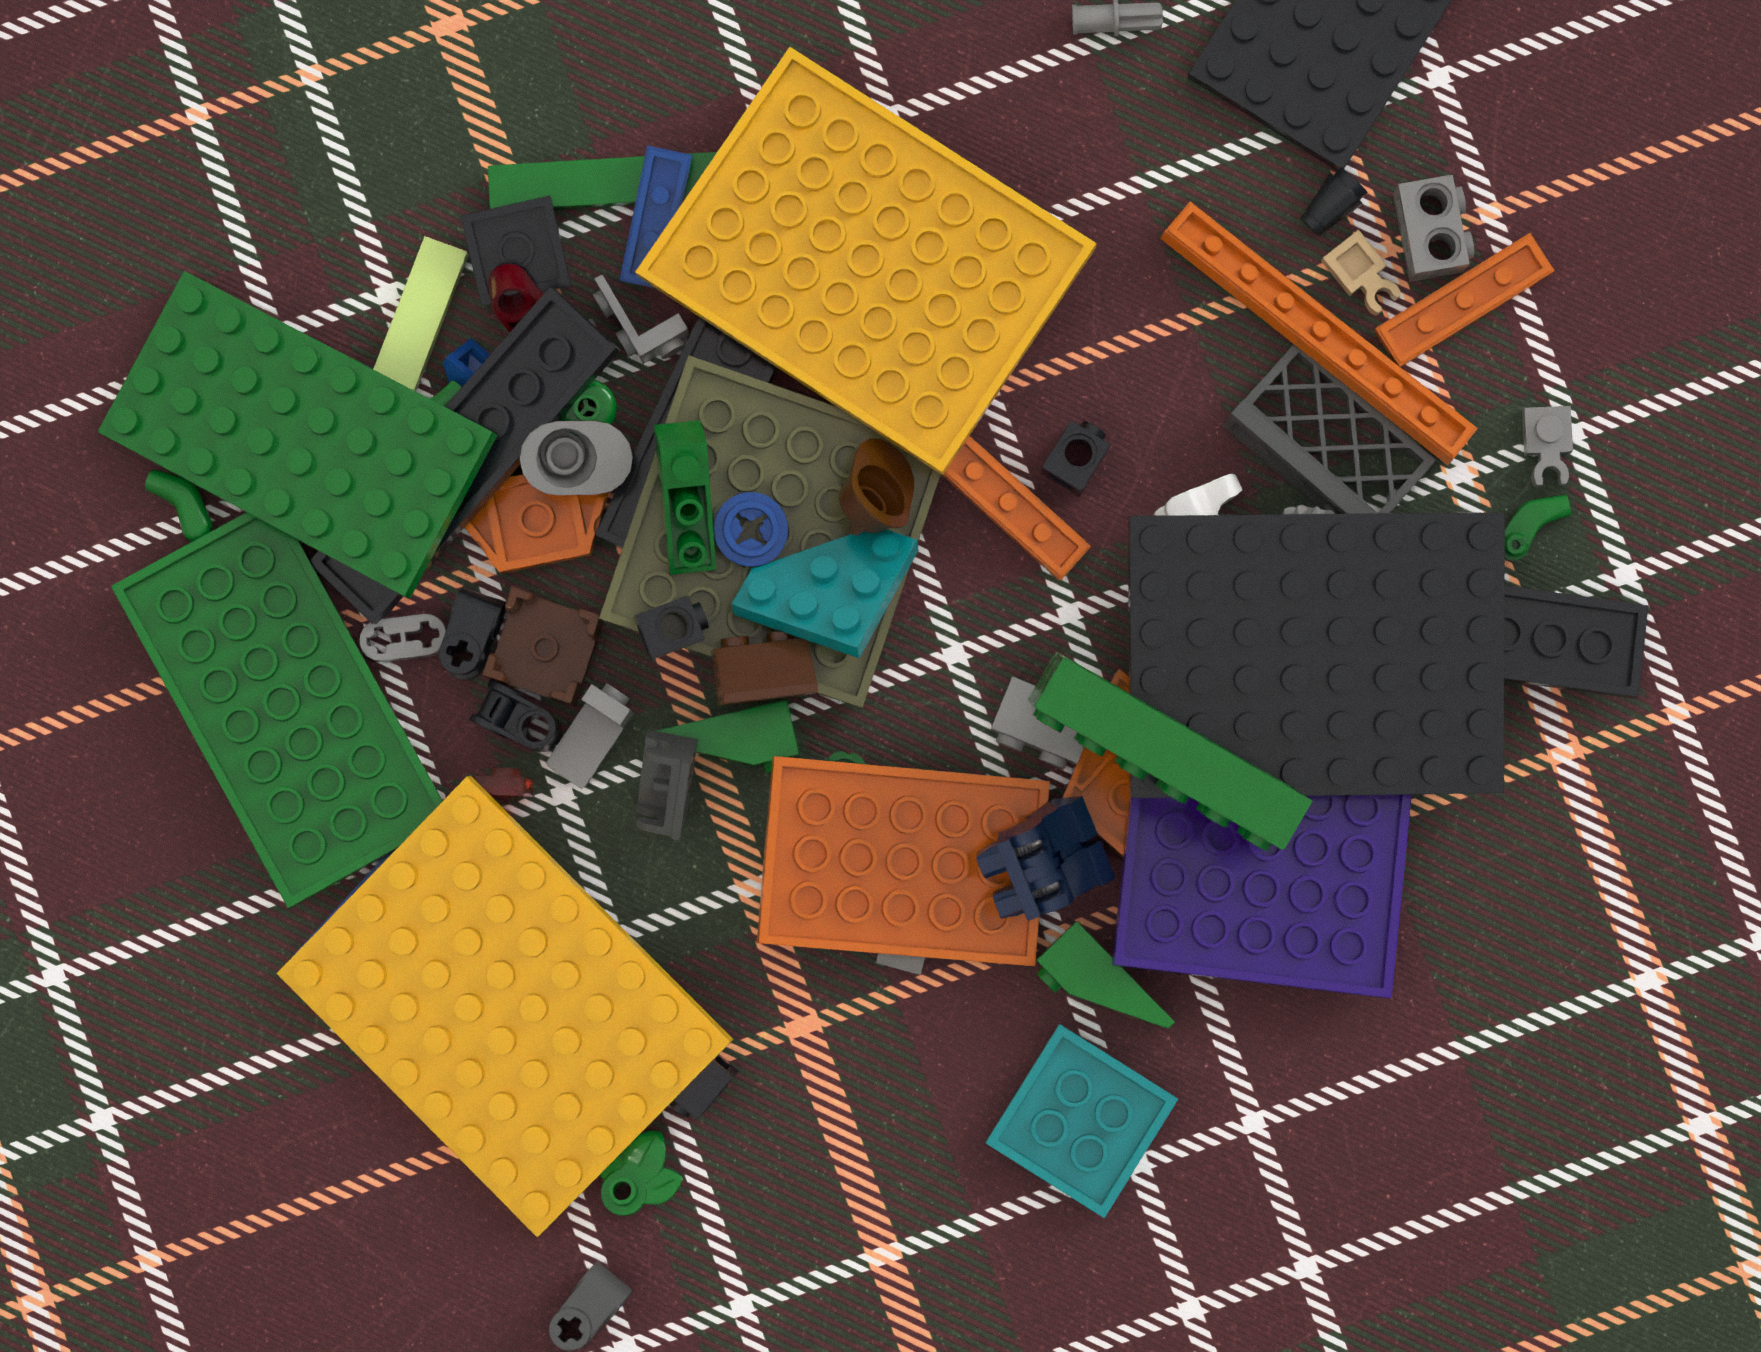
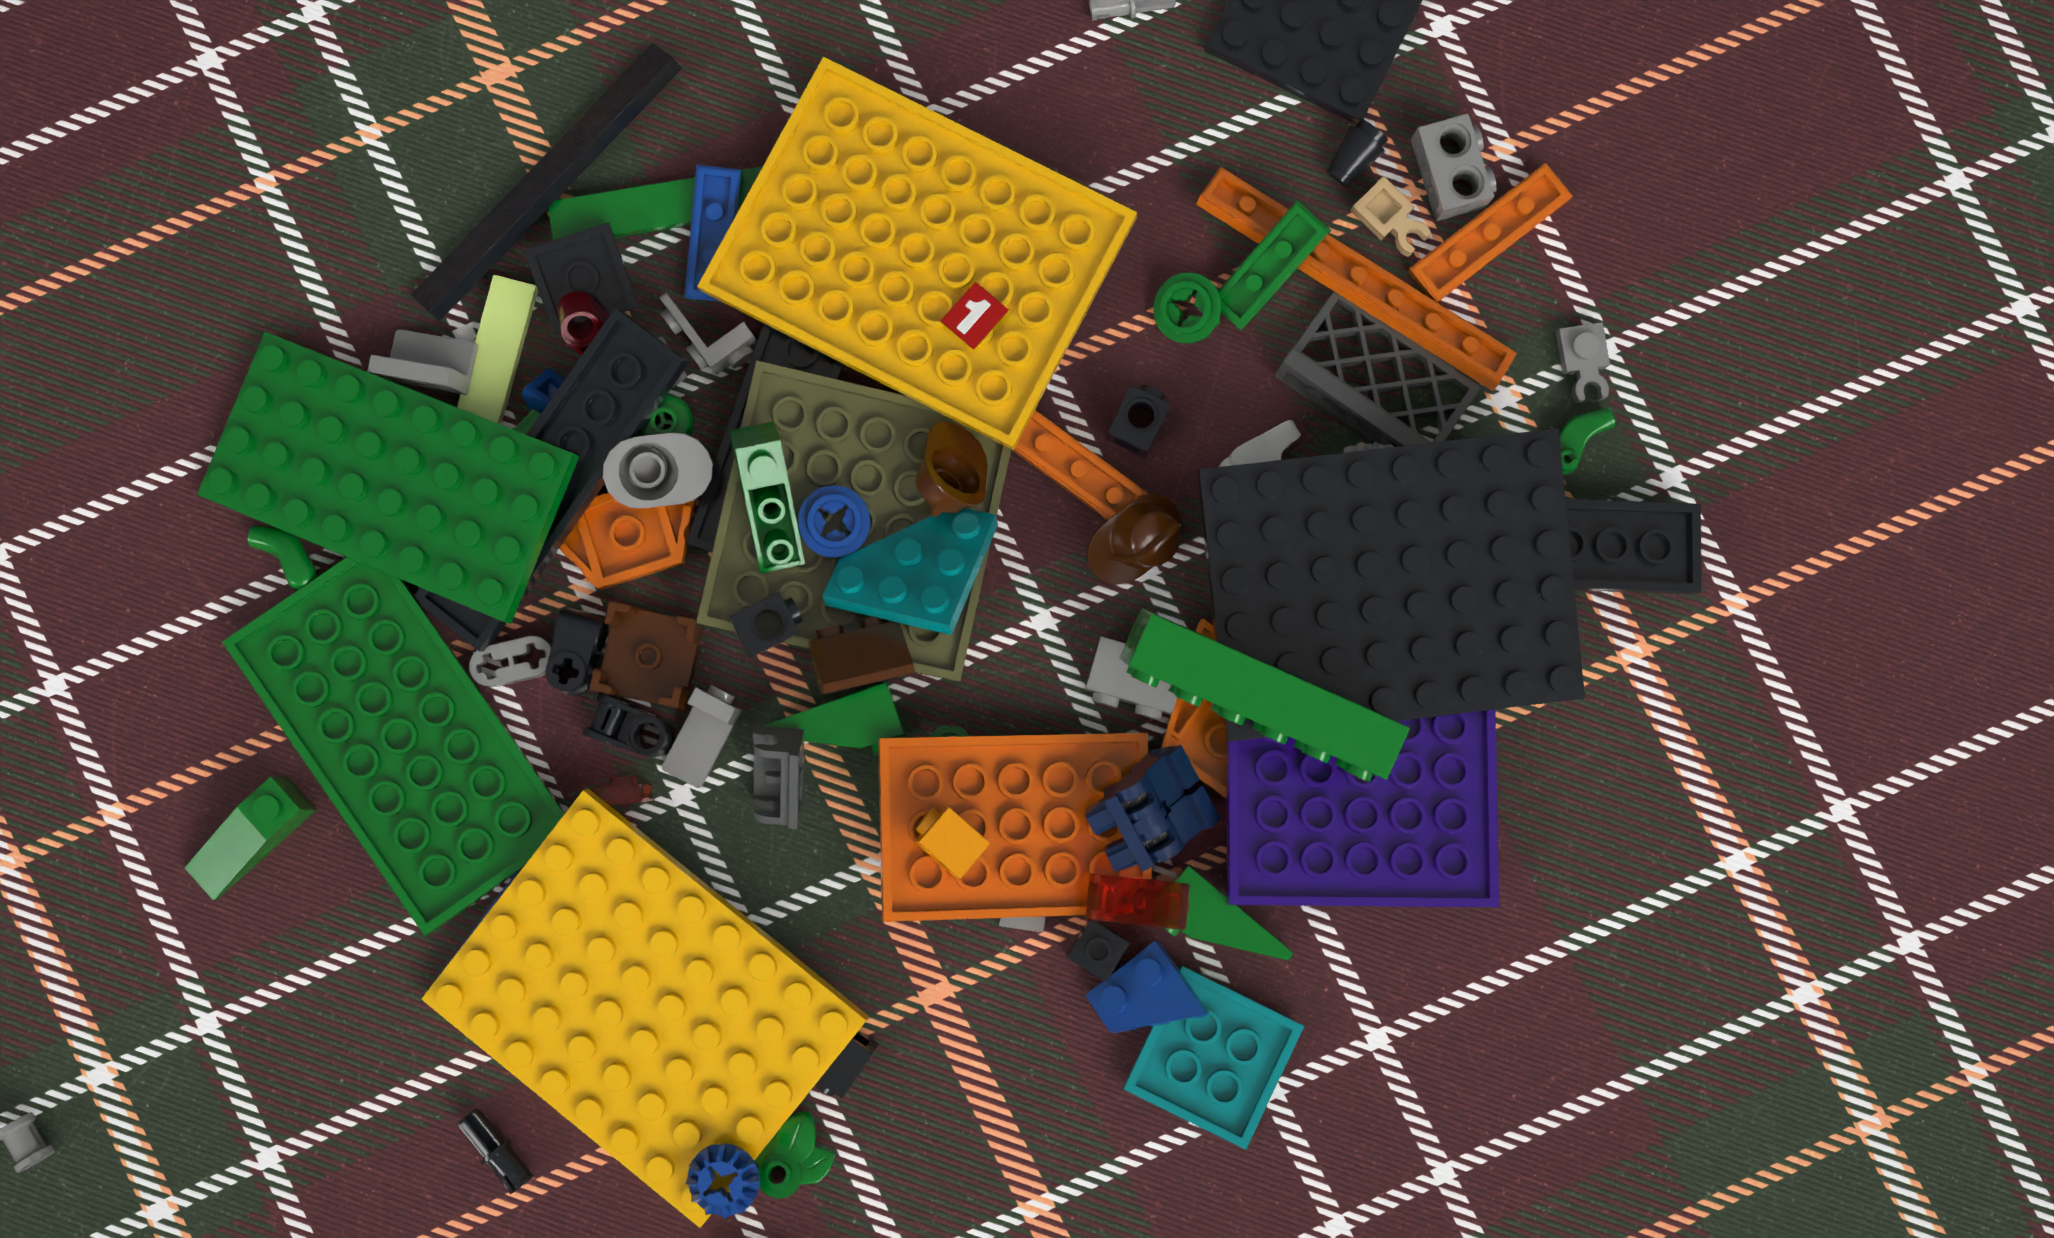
camera: 15 degrees left, 0 degrees up
(116, 788) = (249, 835): none -> green slope
(336, 1136) = (495, 1151): none -> black axle
(348, 319) = (427, 362): none -> light grey panel
(489, 144) = (546, 181): none -> black tile
(571, 1167) = (725, 1160): none -> blue gear
(835, 868) = (950, 841): none -> light orange brick
(917, 332) = (974, 315): none -> red sticker
(974, 996) = (1097, 949): none -> black brick
(1018, 1047) = (1145, 993): none -> blue wing
(1019, 950) = (1137, 901): none -> clear red bracket
(1059, 580) = (1135, 540): none -> reddish brown piece
(1120, 352) = (1170, 317): none -> green gear
(1229, 311) = (1271, 264): none -> green tile

